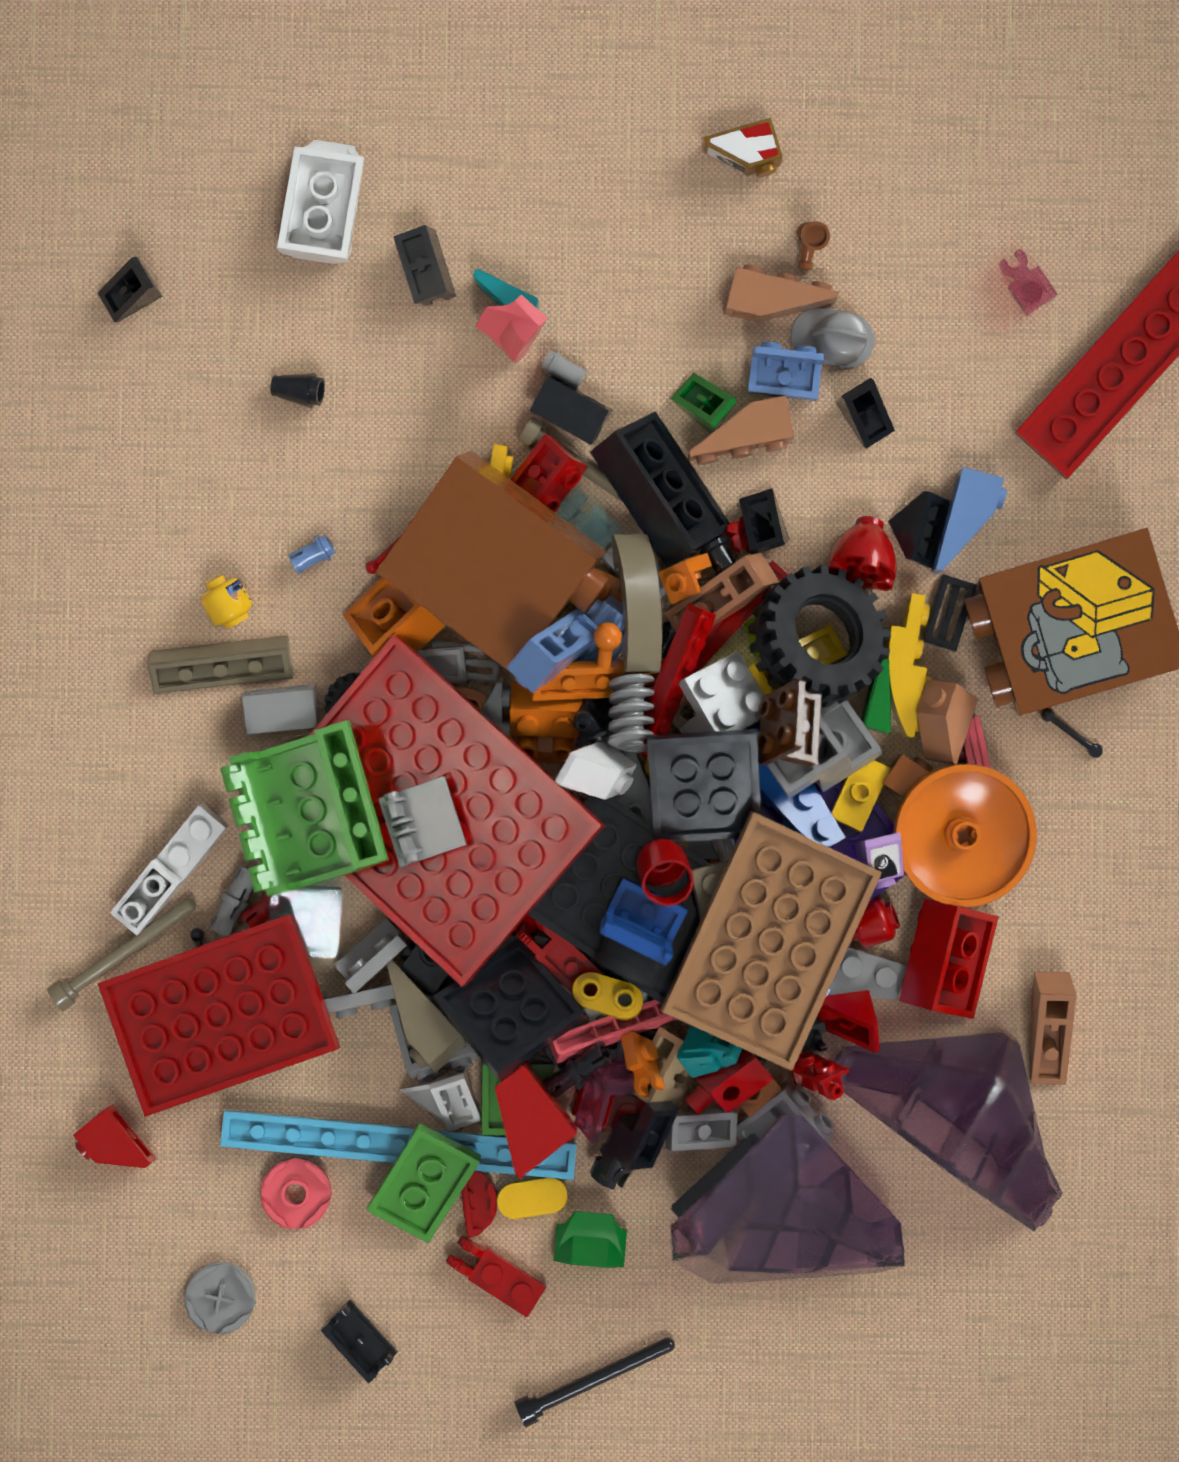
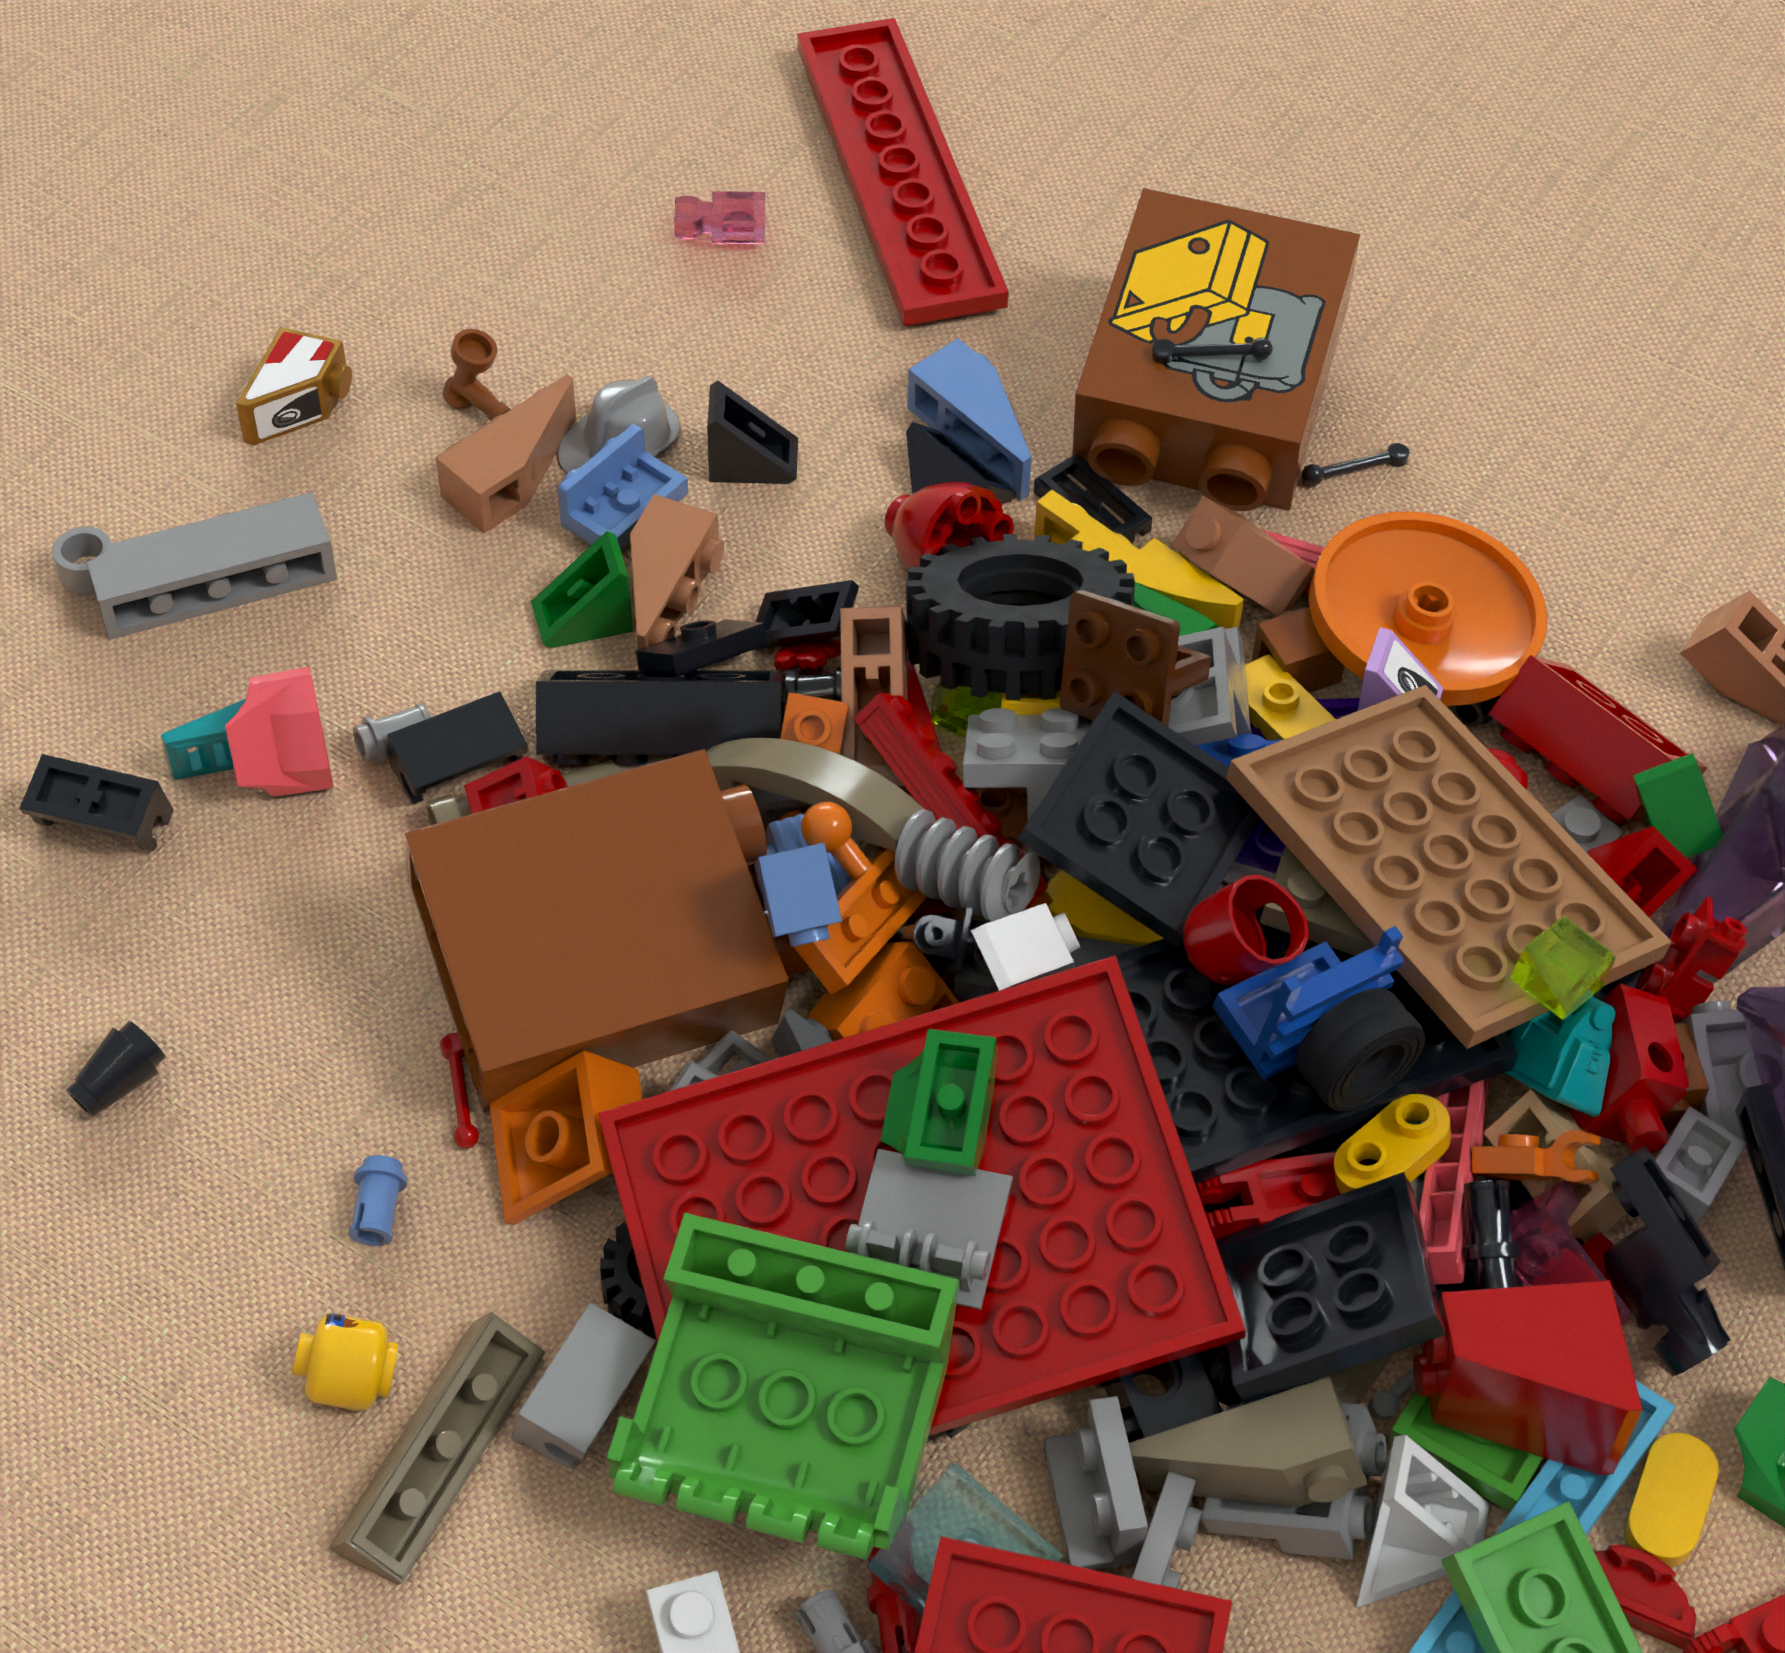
camera: 60 degrees left, 35 degrees down
(476, 794) = (943, 1103): none -> green slope
(598, 198) = (198, 564): none -> light grey hinge
(708, 484) = (700, 646): none -> black plate
(723, 1034) = (1563, 967): none -> clear neon green slope
(905, 1030) = (1679, 805): none -> green slope
(1035, 609) = (1165, 350): none -> black hinge

